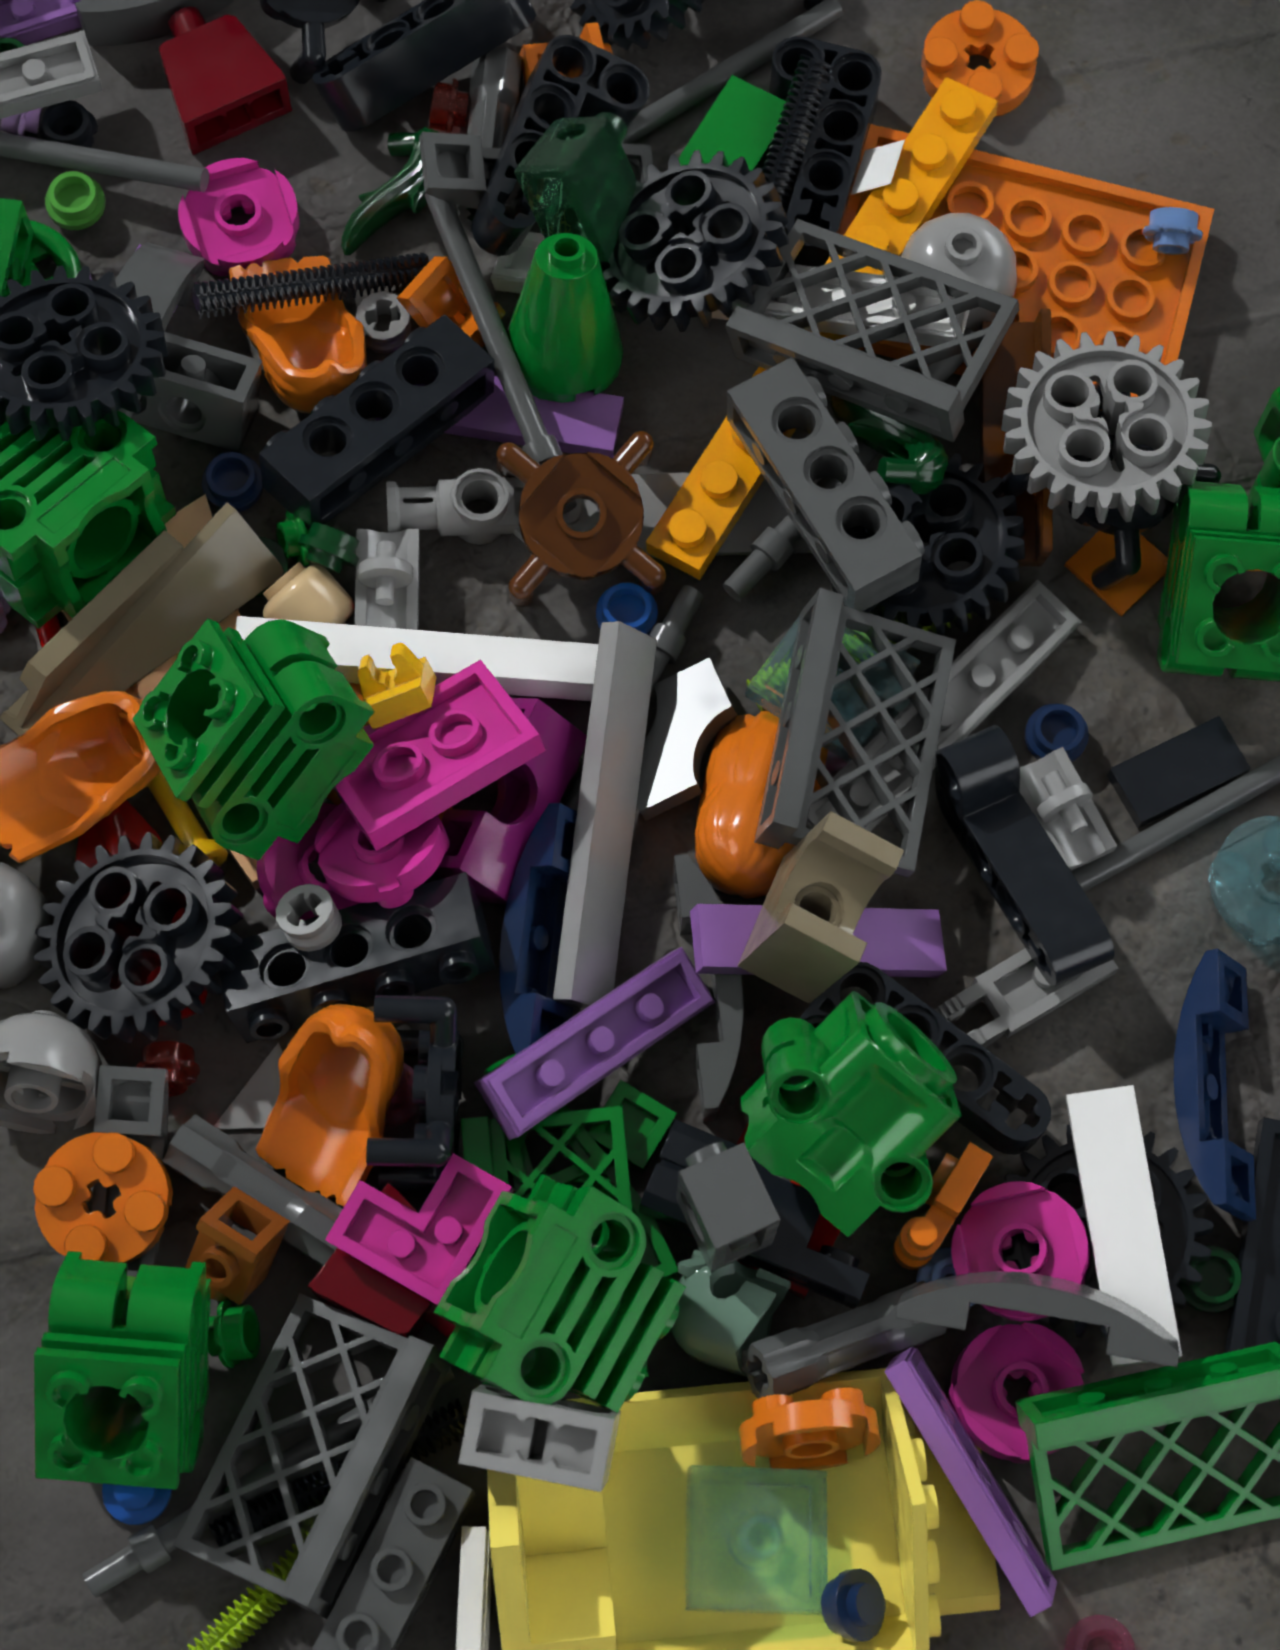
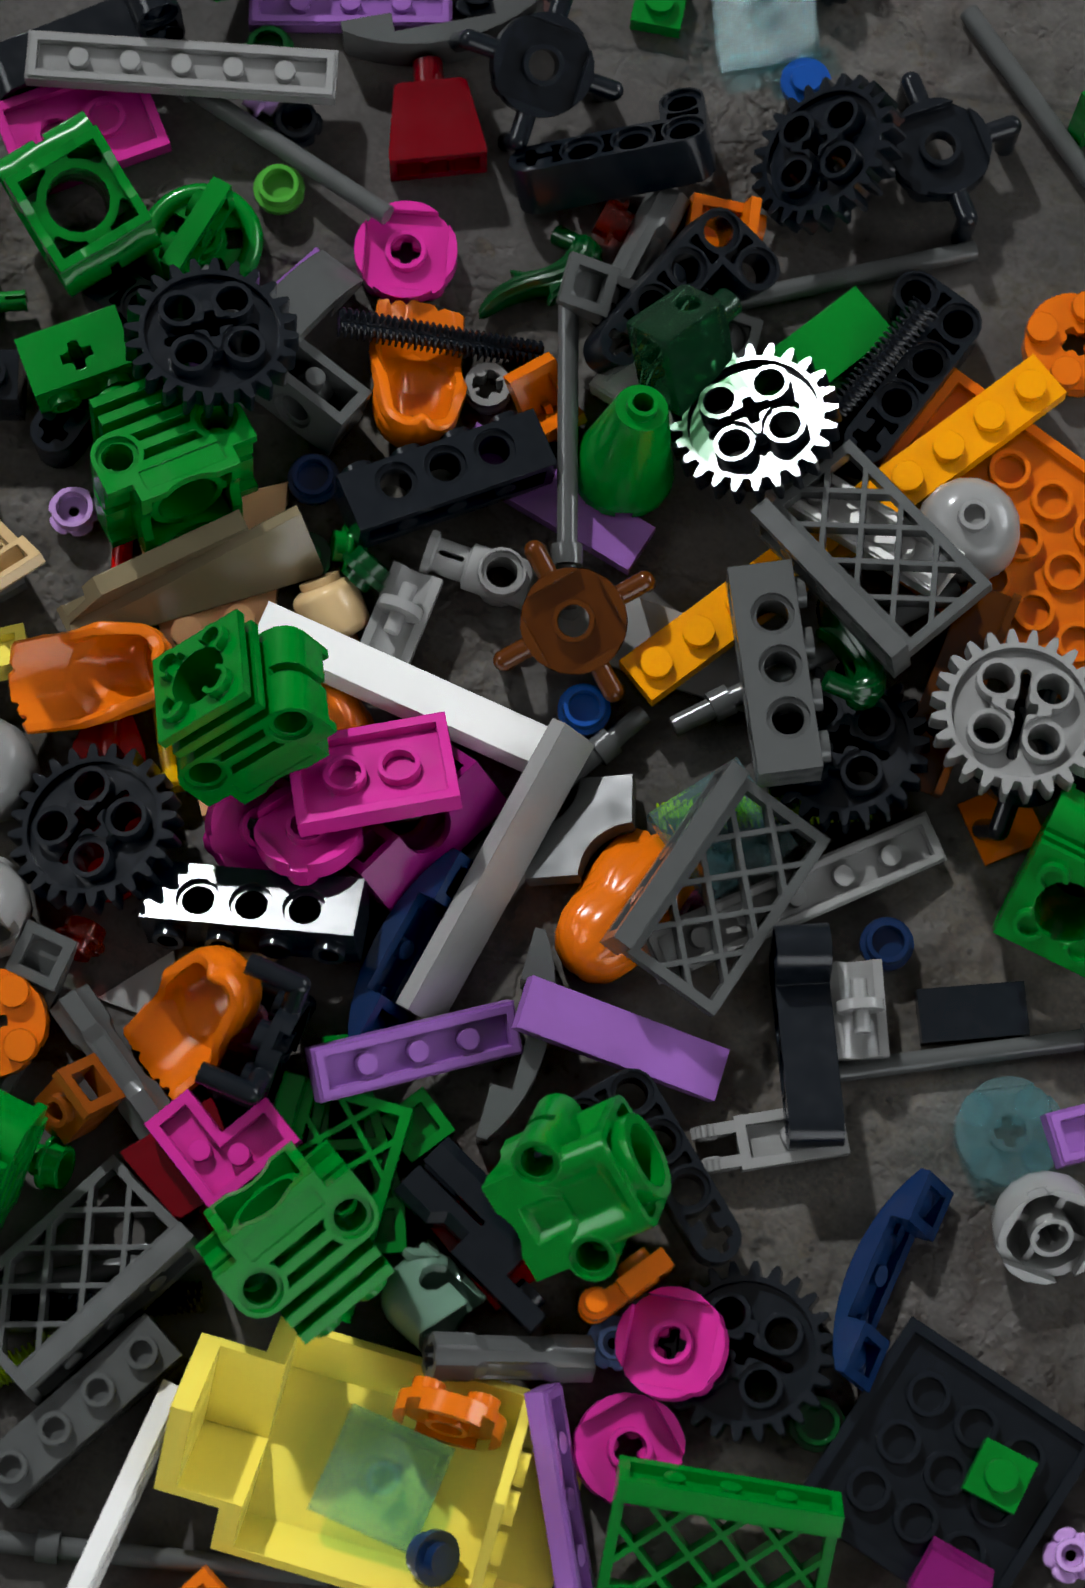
camera: 20 degrees right, 5 degrees up
(299, 901) = (227, 851): light grey bush -> none
(399, 690) = (368, 713): yellow tile -> none
(545, 1442) = (251, 1349): light grey brick -> none
(726, 1204) = (450, 1220): dark grey brick -> none
(814, 905) = (645, 996): dark tan piece -> none
(877, 167) = (942, 412): white sticker -> none
(1120, 1204) = (757, 1356): white tile -> none
(1129, 1330) = (721, 1438): dark grey slope -> none

